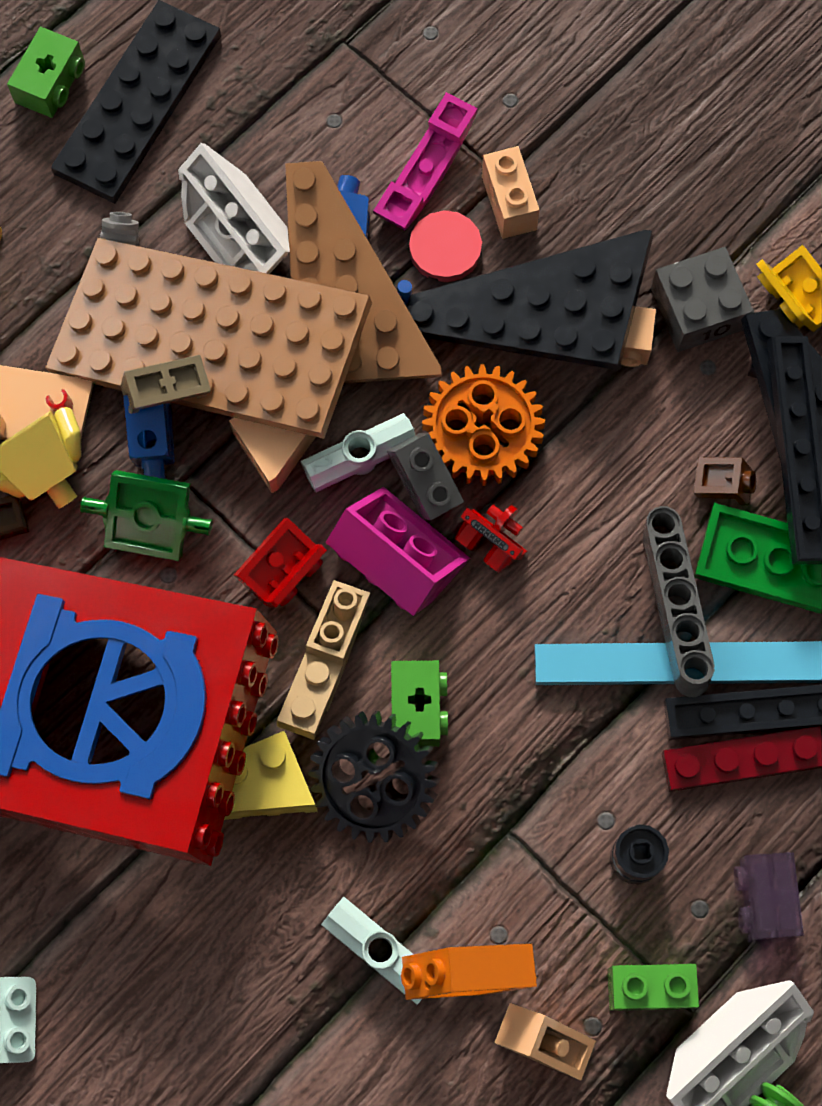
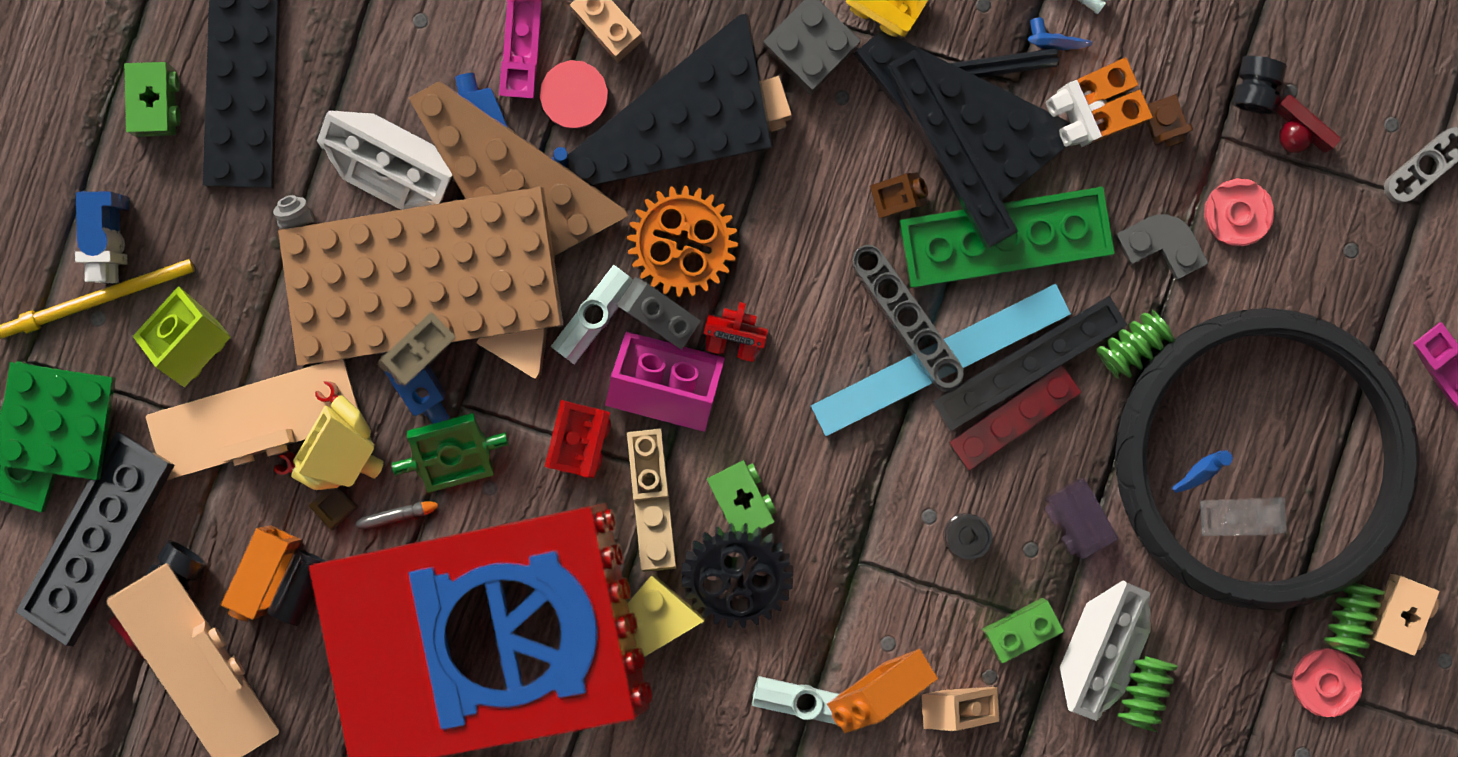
camera: 25 degrees left, 15 degrees up
(61, 555) = (396, 515): none -> dark grey piece

